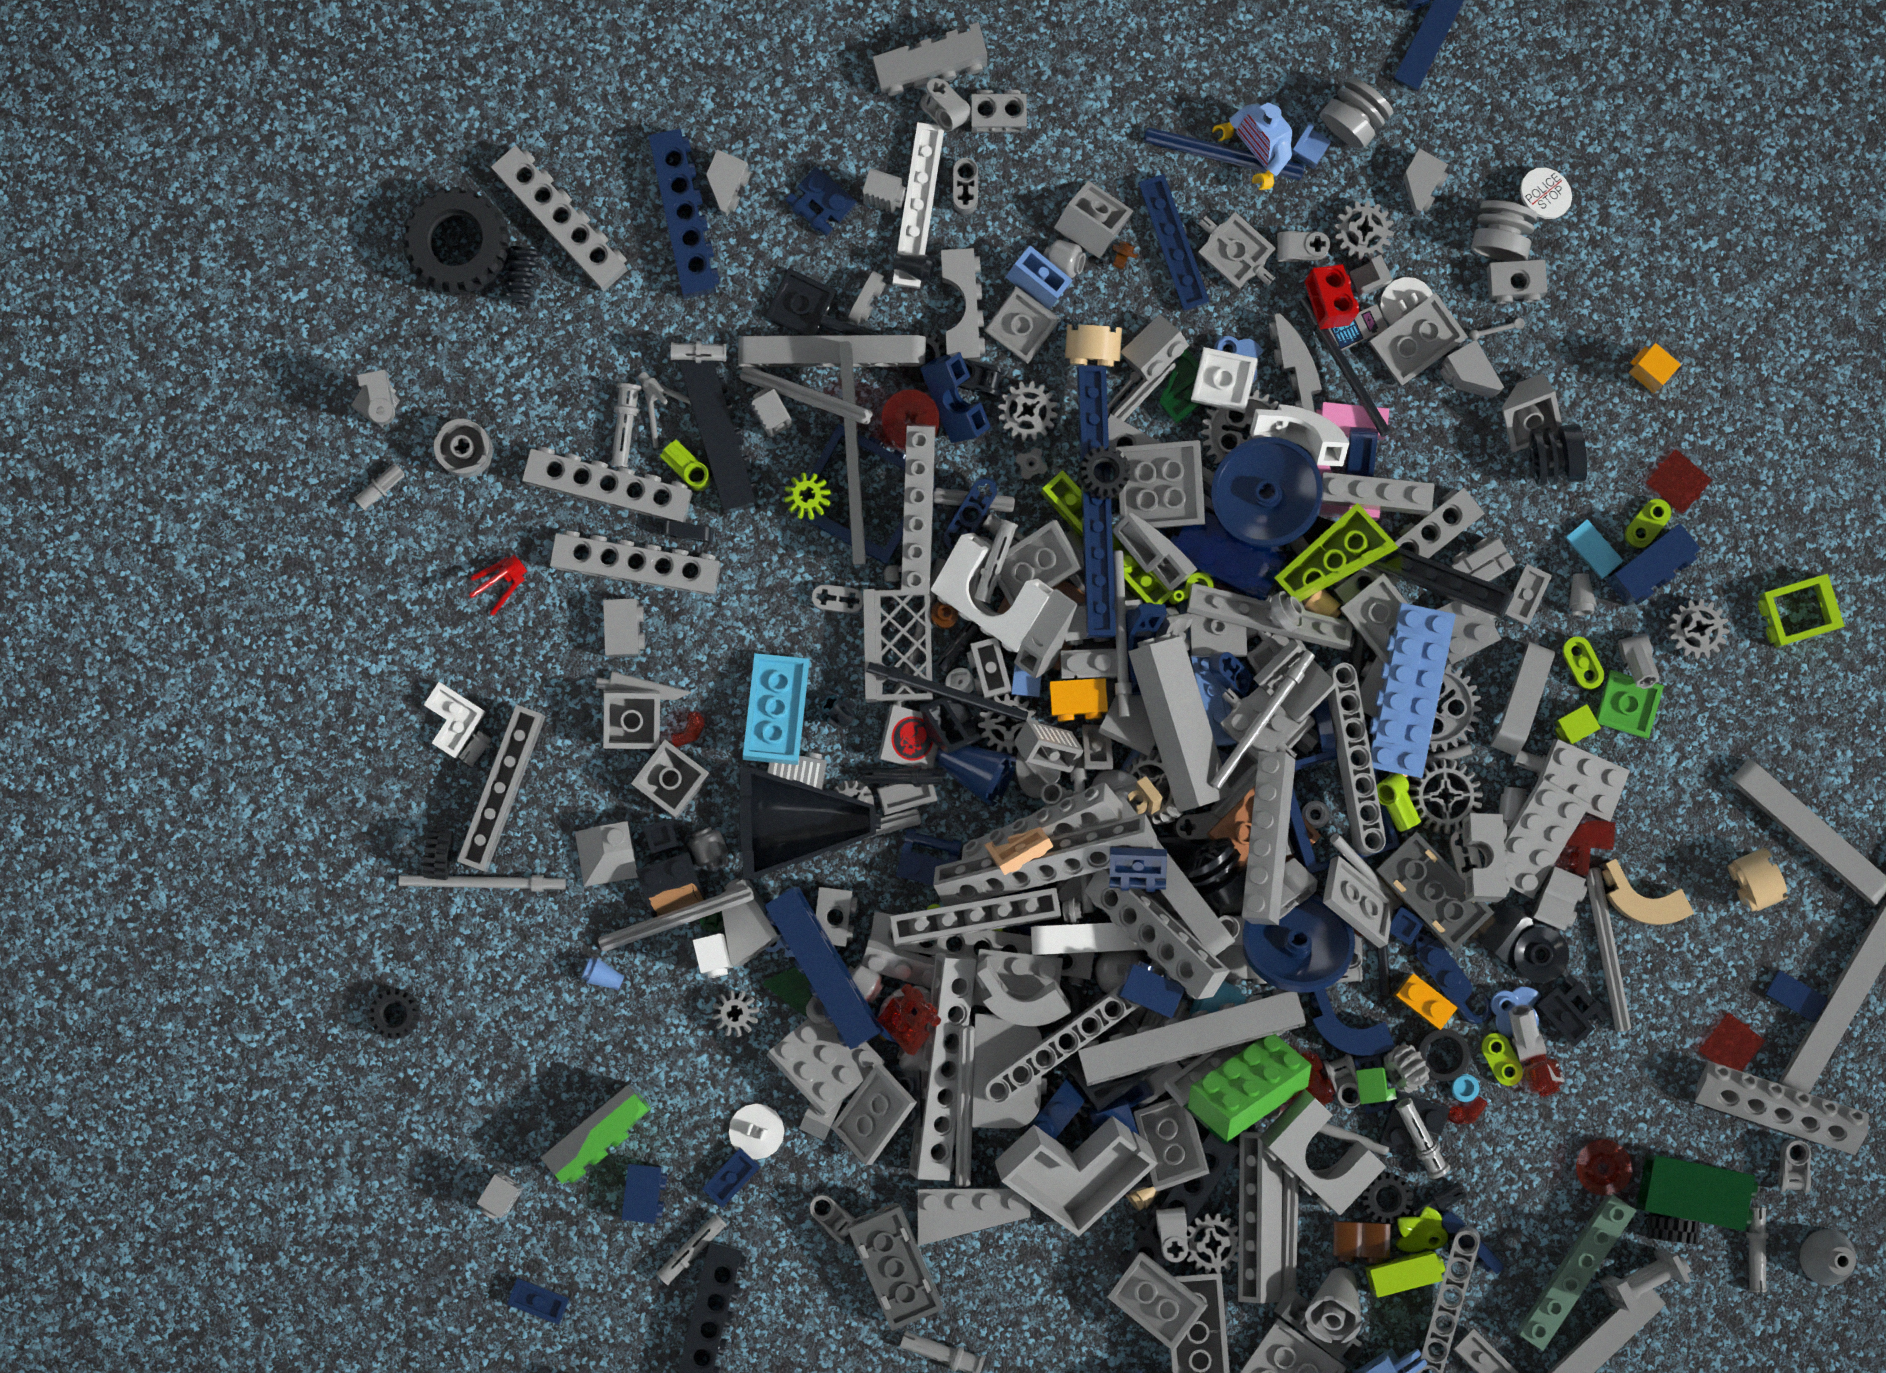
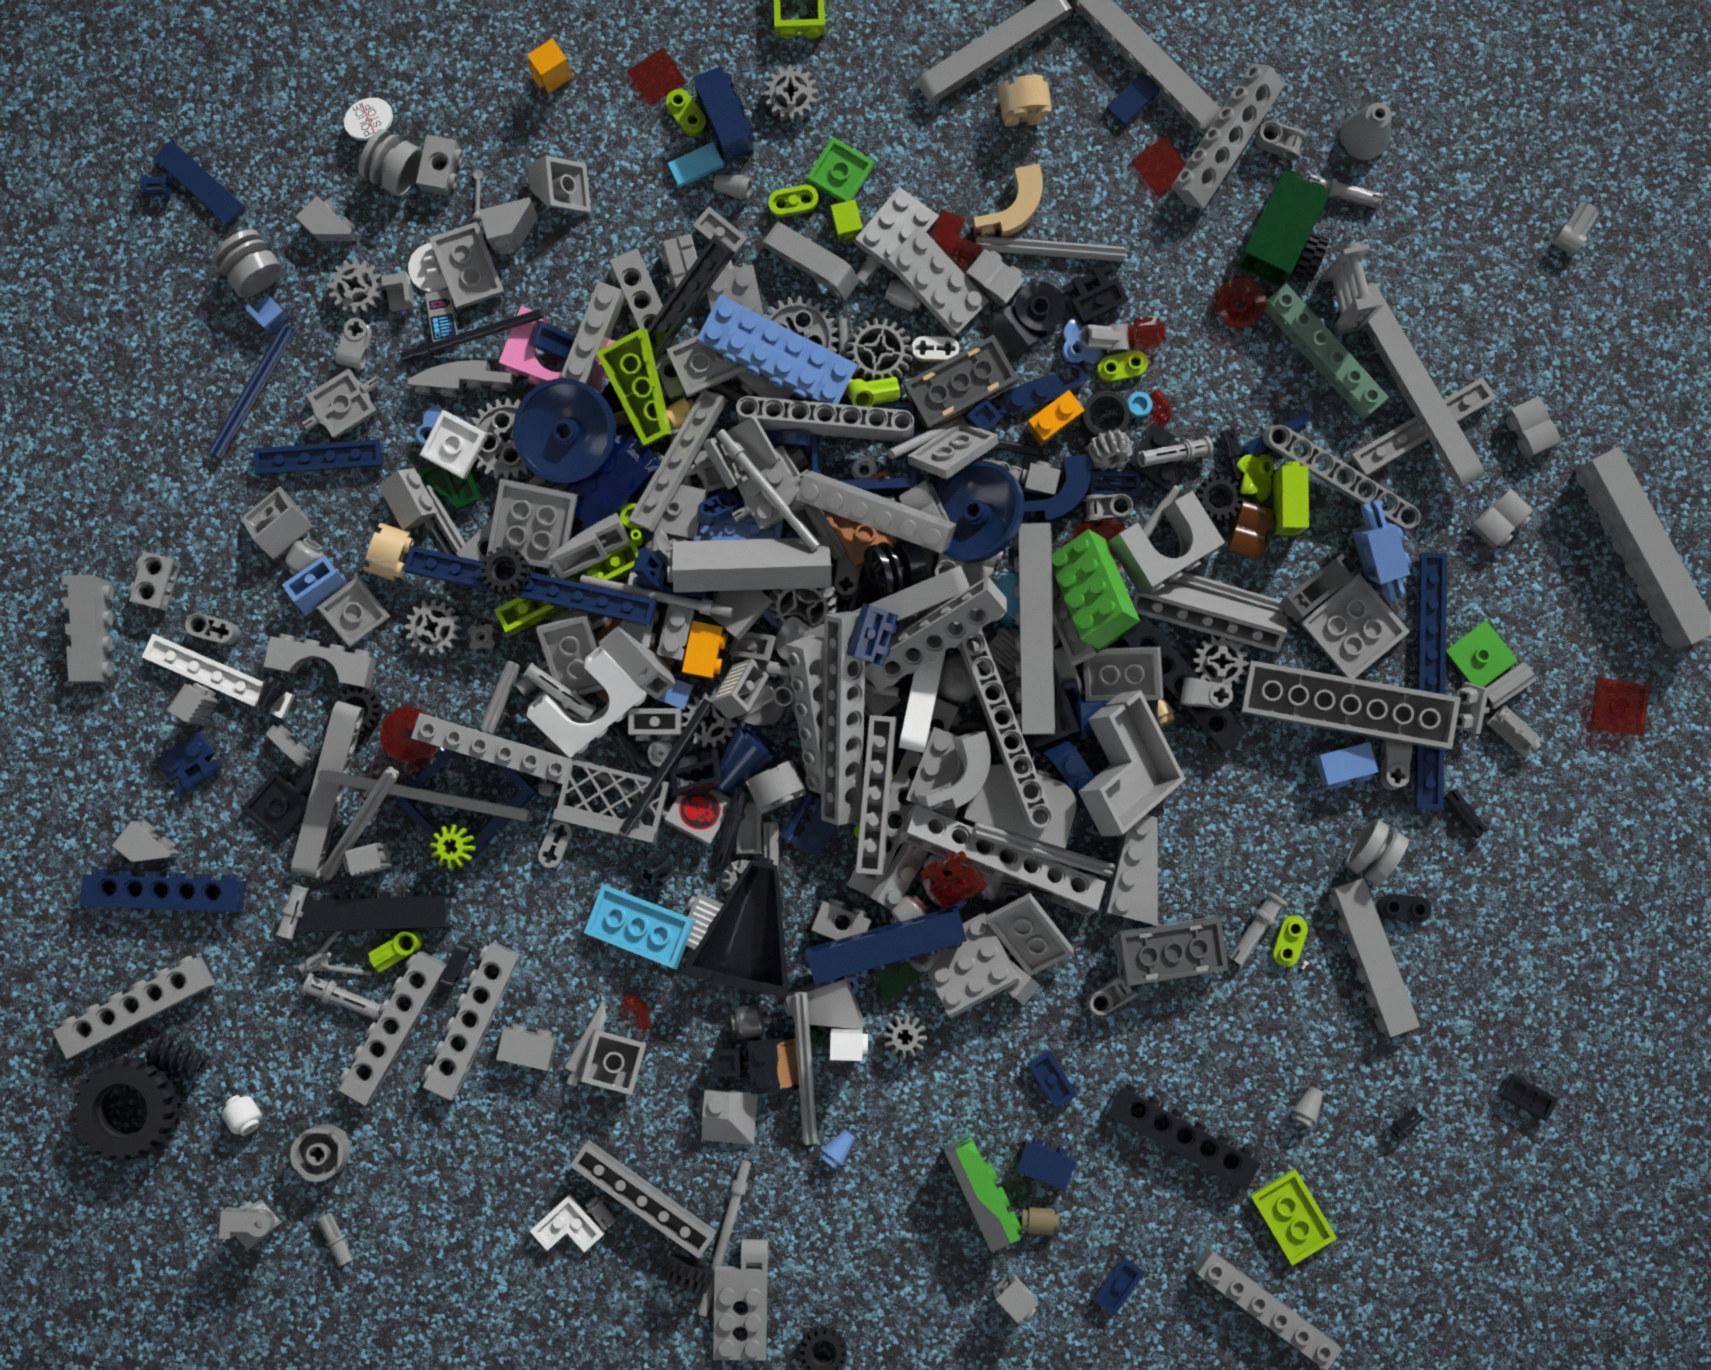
camera: 75 degrees left, 0 degrees up
(441, 918) = (748, 1285): none -> light grey hinge
(479, 357) = (241, 1115): none -> white head
(510, 569) = (443, 1138): red plant -> none
(582, 1202) = (1039, 1221): none -> dark tan brick
(668, 1273) = (1123, 1159): light grey pin -> none
(671, 779) = (677, 1039): light grey slope -> none
(756, 1130) = (1015, 1044): white piece -> none
(944, 615) = (596, 751): reddish brown plate -> none
(946, 107) = (134, 627): light grey piece -> none
(956, 811) = (776, 787): none -> light grey brick
(960, 419) = (421, 690): dark blue arch -> none
(974, 491) = (491, 694): dark blue beam -> none
(980, 376) = (390, 663): black piece -> none
(1019, 850) = (827, 738): light nougat wing -> none
(1072, 911) = (894, 706): light grey plate -> none
(1124, 251) = (313, 502): reddish brown plate -> none
(1148, 795) = (807, 611): tan tile -> none
(1150, 990) = (985, 653): dark blue brick -> none
(1157, 1301) = (1262, 723): light grey plate -> none
(1266, 137) = (244, 348): light blue torso -> none
(1286, 611) = (676, 442): light grey plate -> none
(1306, 428) = (523, 375): white arch -> none
(1327, 297) = (406, 329): red brick -> none
(1335, 1308) = (1307, 567): light grey cone -> none
(1355, 1003) = (1040, 479): none -> light grey brick
(1373, 1086) = (1119, 481): bright green panel -> none
(1488, 835) = (923, 321): light grey arch -> none
(1564, 455) = (603, 170): black wheel -> none
(1637, 653) = (799, 150): light grey piece -> none

